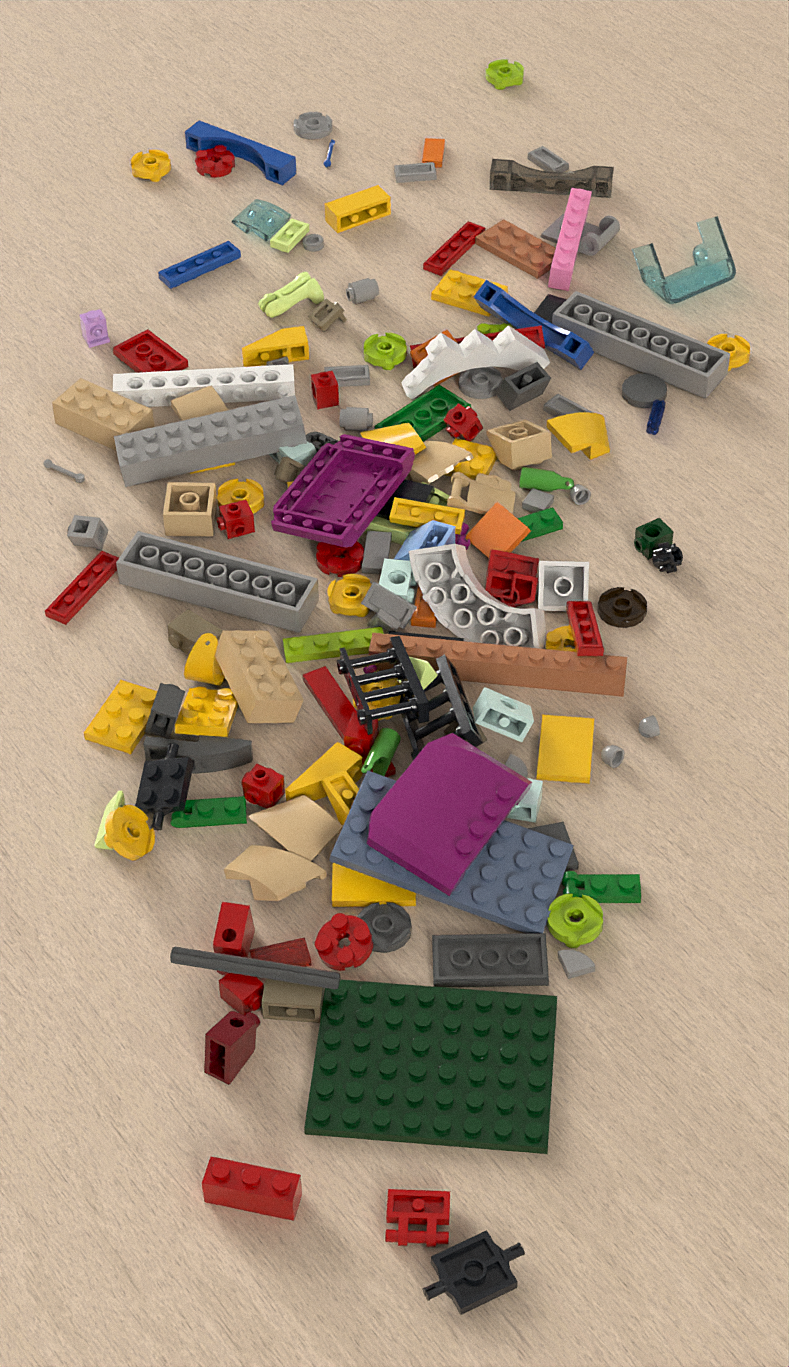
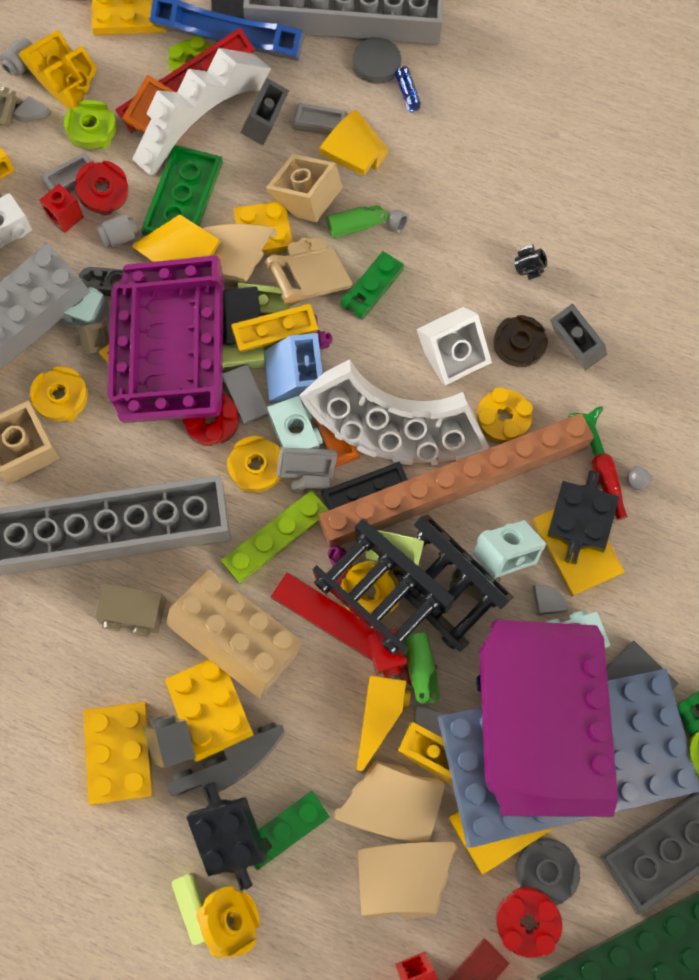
camera: 35 degrees left, 25 degrees up
(202, 663) = (170, 648): yellow piece -> none
(236, 519) = (75, 430): red brick -> none
(263, 786) = (335, 764): red brick -> none
(347, 326) = (31, 110): none -> light grey tile
(364, 399) = (96, 201): none -> red plate
(388, 307) = (60, 69): none -> yellow slope
(462, 423) = (239, 194): red brick -> none
(480, 382) = (215, 125): light grey tile -> none
(497, 531) = (355, 314): orange tile -> none
(511, 578) = (399, 363): red slope -> none
(537, 501) = (362, 249): light grey tile -> none
(580, 726) = (583, 516): none -> black plate
(584, 628) = (518, 397): red tile -> none
(612, 755) = (625, 531): light grey hinge -> none
(627, 705) = (604, 463): none -> red piece
(650, 535) = (505, 235): dark green brick -> none
(667, 616) = (579, 337): none -> dark grey brick

